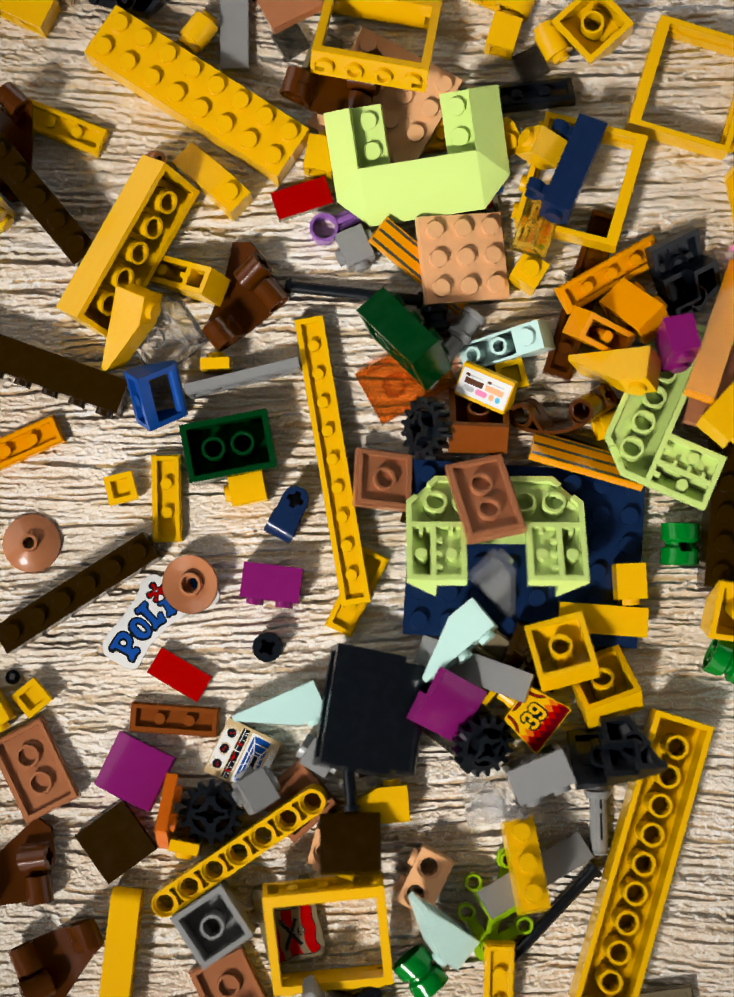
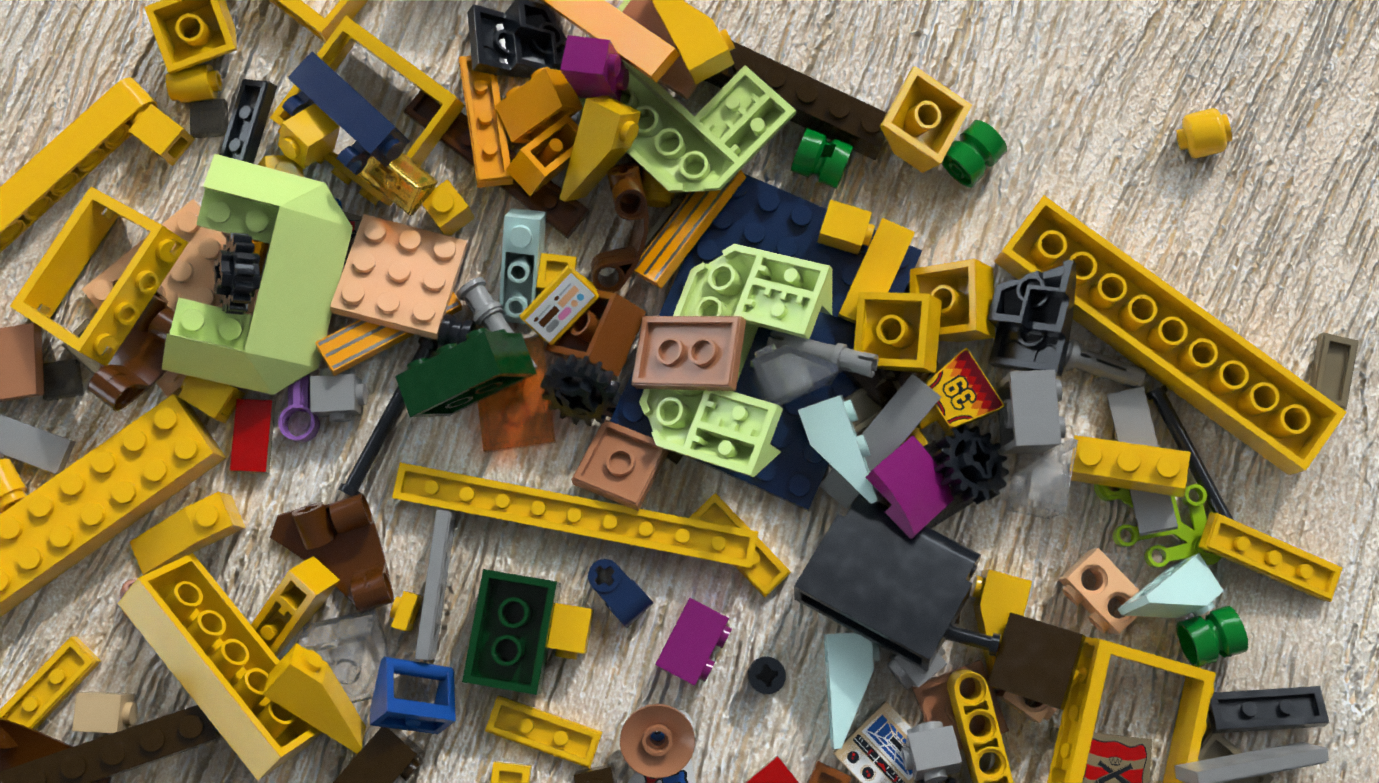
camera: 70 degrees left, 5 degrees down
(64, 177) = (104, 712): none -> tan brick
(414, 139) = (236, 273): none -> black gear
(524, 609) = (843, 357): none -> light grey pin

